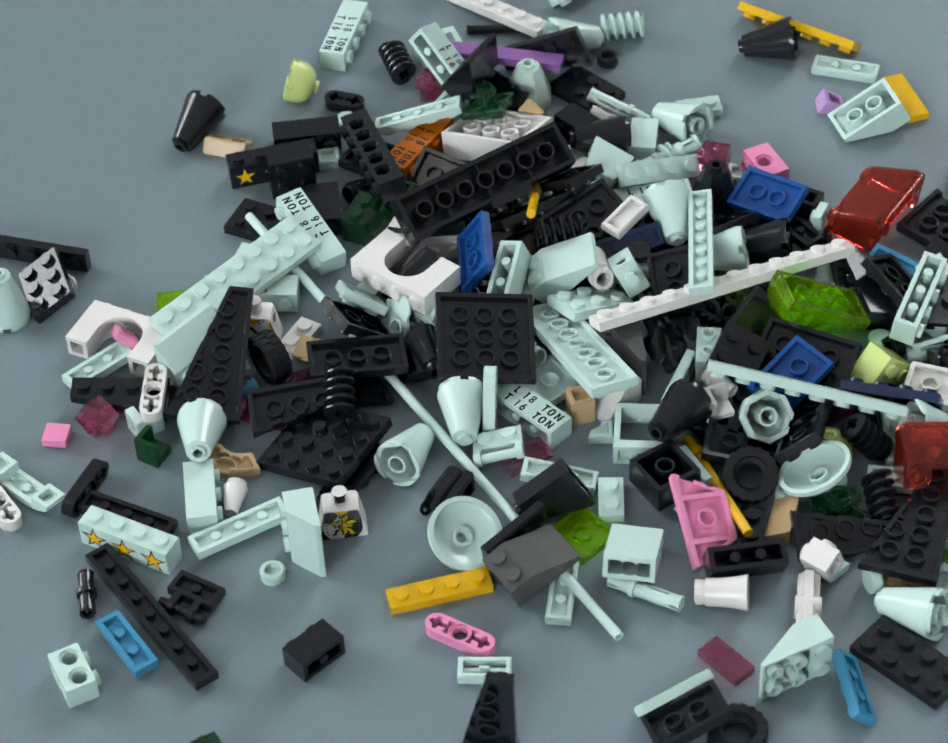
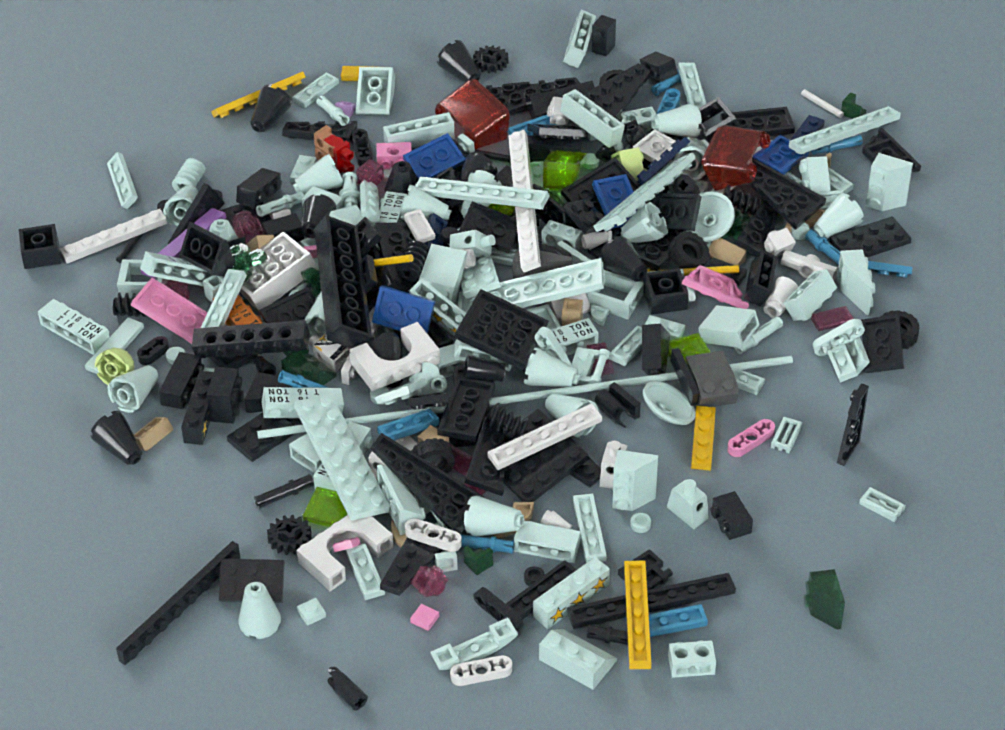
camera: 70 degrees left, 0 degrees up
(31, 347) = (311, 611): none -> light aqua plate
(43, 573) = (575, 657): none -> light aqua slope
(110, 601) = (637, 615): none -> yellow plate
(125, 290) = (289, 534): none -> black gear
(152, 502) = (532, 574): none -> black tile
(177, 450) = (485, 543): none -> dark azure pin
(191, 270) = (292, 487): none -> black pin
(276, 105) = (132, 388): none -> light aqua cone
(308, 600) = (689, 503): none -> light aqua torso
(310, 320) = (409, 425): none -> dark azure plate
(330, 215) = (297, 381): none -> dark azure pin
(337, 432) = (544, 436): none -> white plate
(347, 74) = (119, 339): none -> light aqua tile
(394, 81) = (169, 309): none -> bright pink plate
(558, 92) = (246, 225): none -> clear pink tile
(630, 79) = (258, 187): none -> black brick
(638, 689) = (842, 363): none -> light aqua plate
(671, 666) = (853, 328): none -> light aqua beam
(732, 109) = (336, 147): none -> hips
(742, 620) = (810, 295): none -> light aqua brick
(772, 99) = (306, 130): none -> black wing
(780, 133) = (361, 143): none -> black beam
(806, 94) = (336, 113): none -> light aqua pin
(815, 169) = (420, 130): none -> light aqua brick
(859, 612) = (822, 244): none -> dark azure pin

